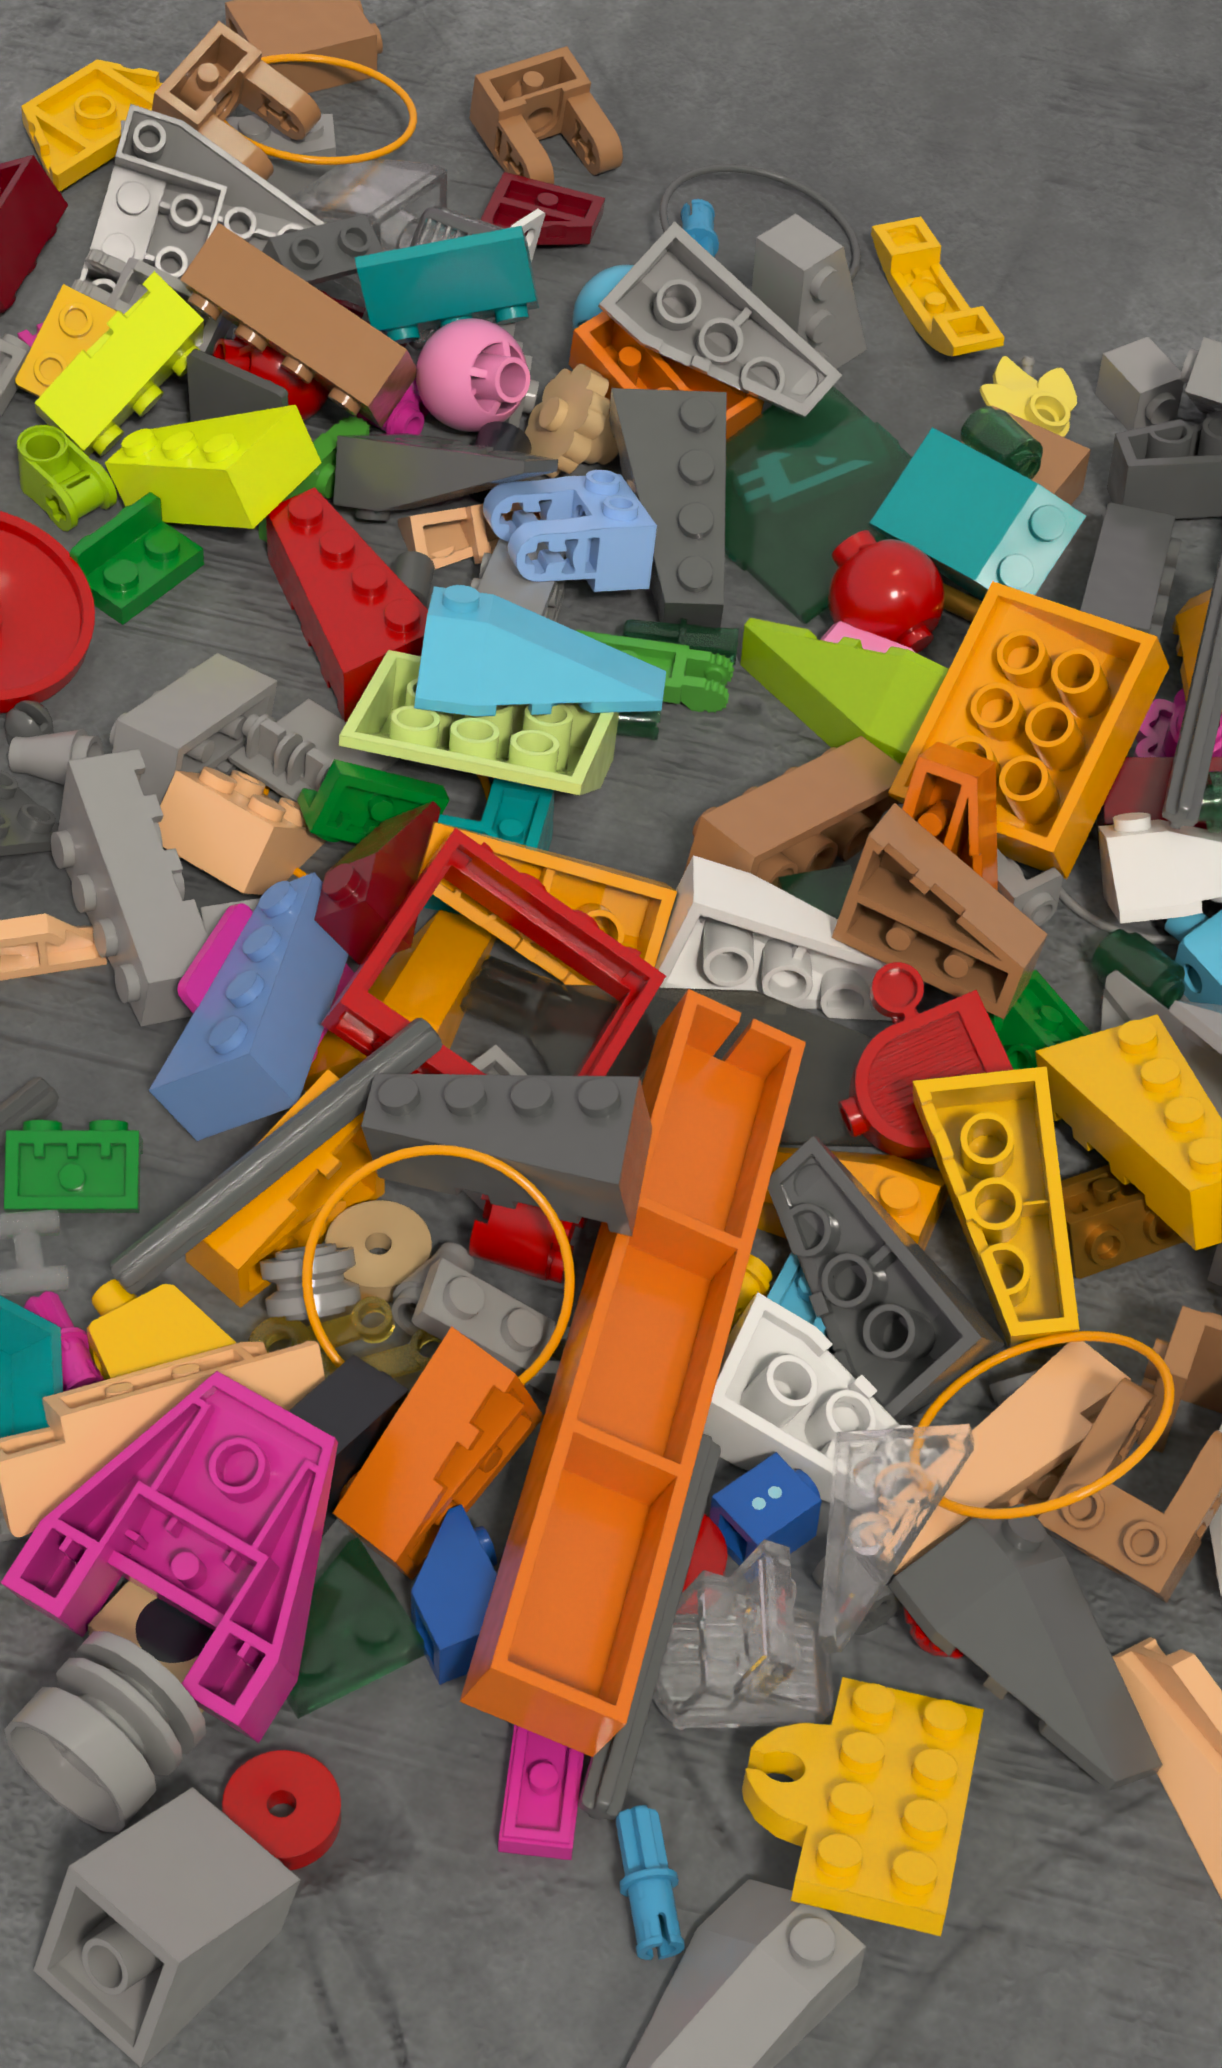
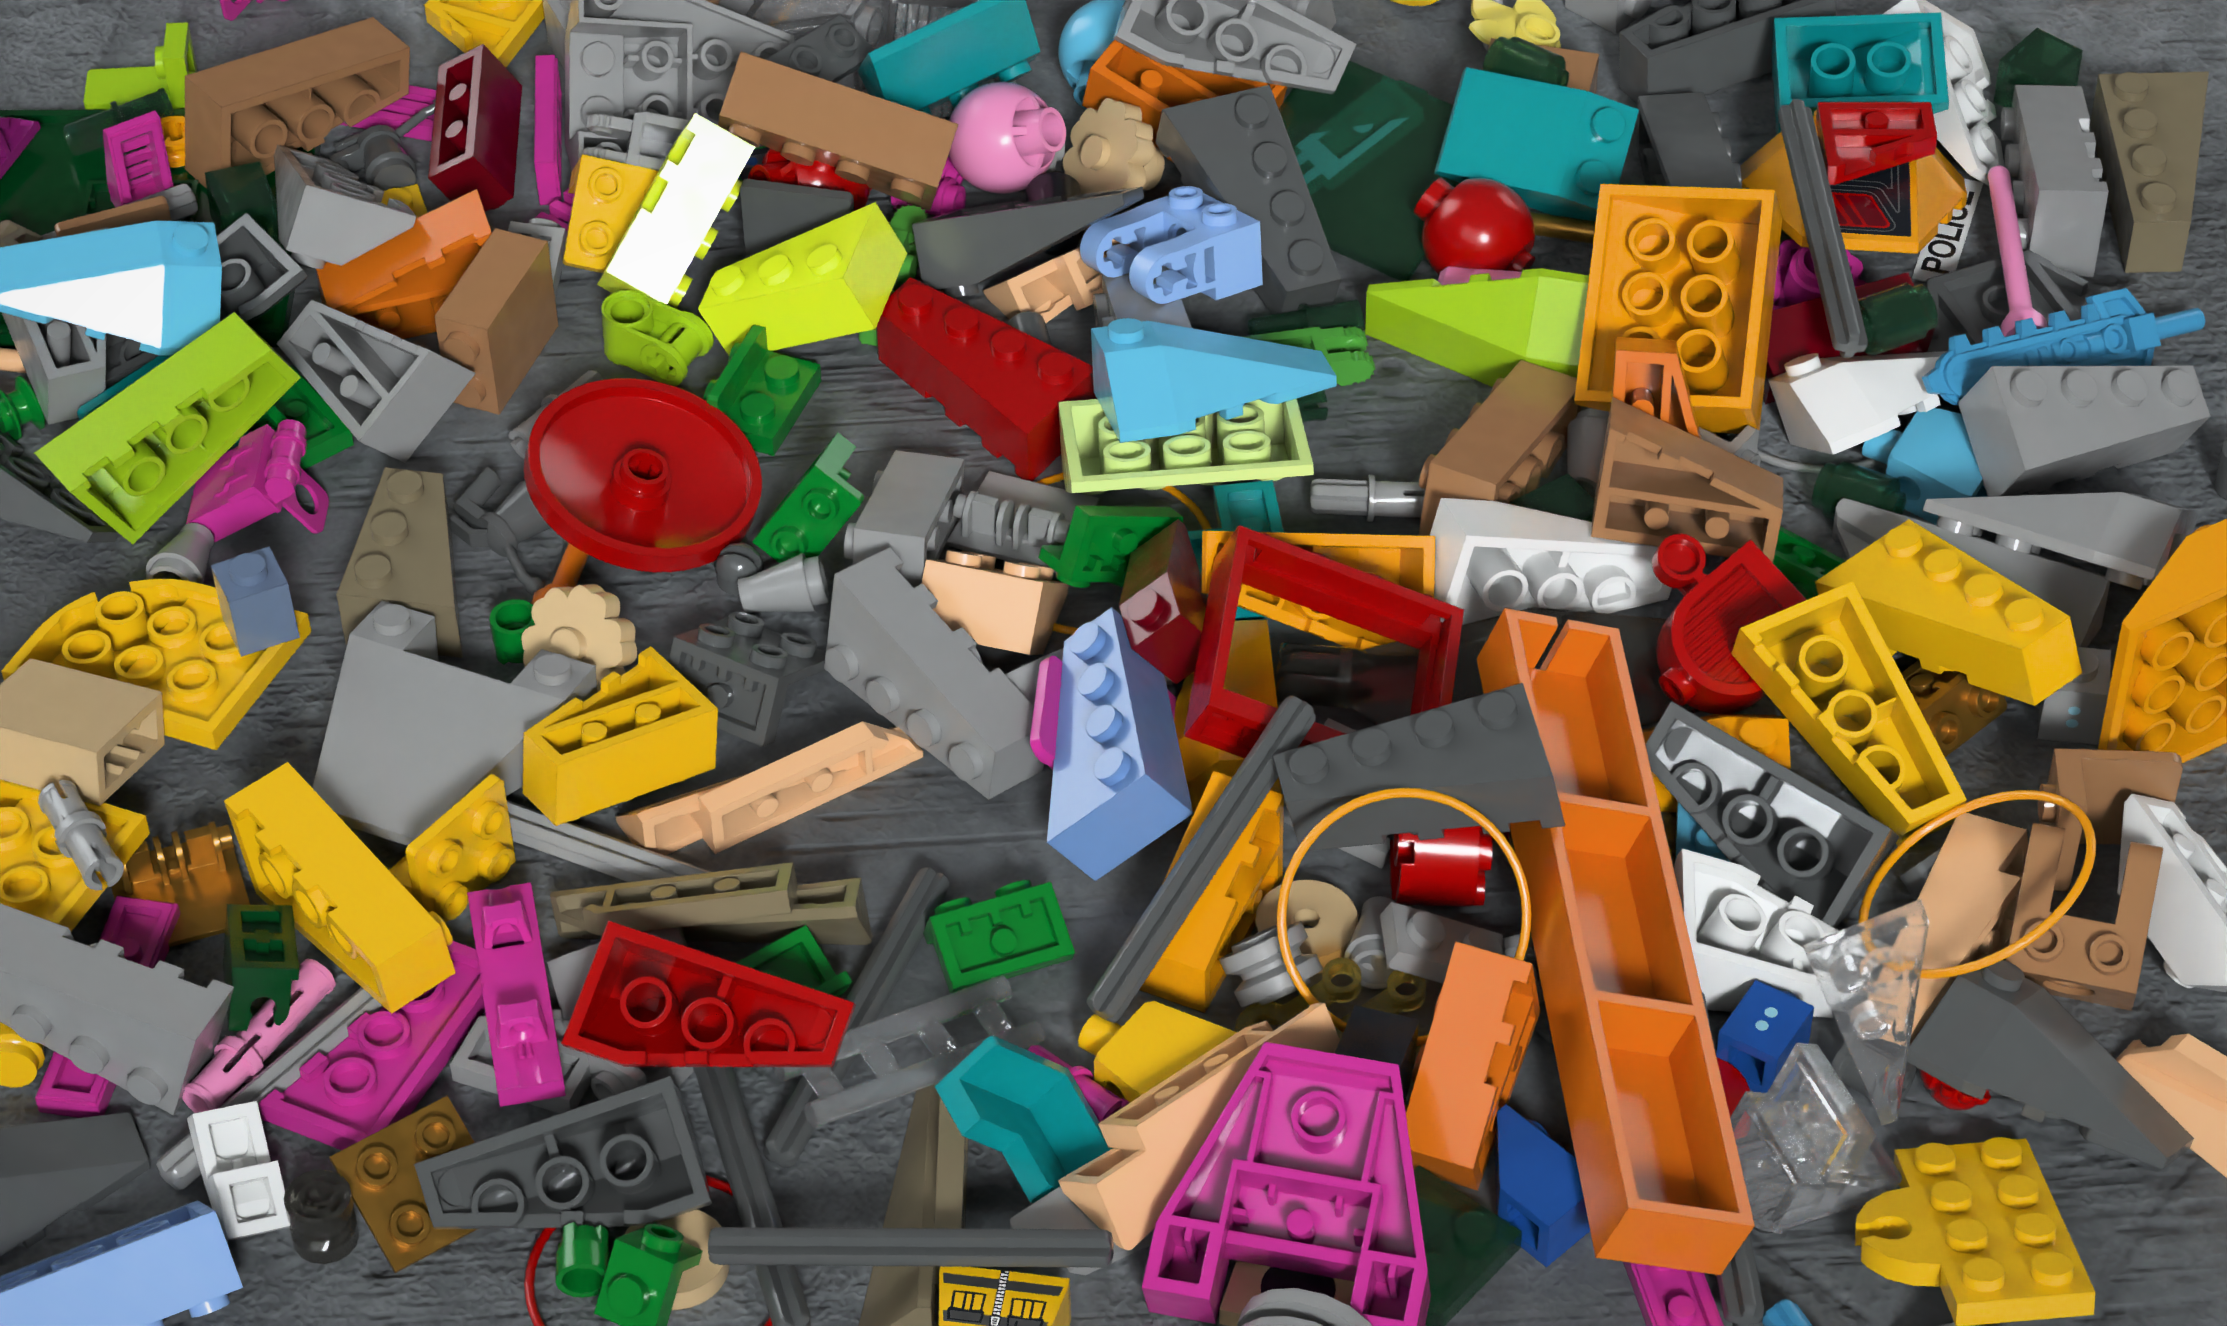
camera: 15 degrees left, 5 degrees down
(69, 249) = (548, 129): none -> dark pink tile
(109, 683) = (813, 507): none -> green bracket
(645, 828) = (1366, 498): none -> light grey axle

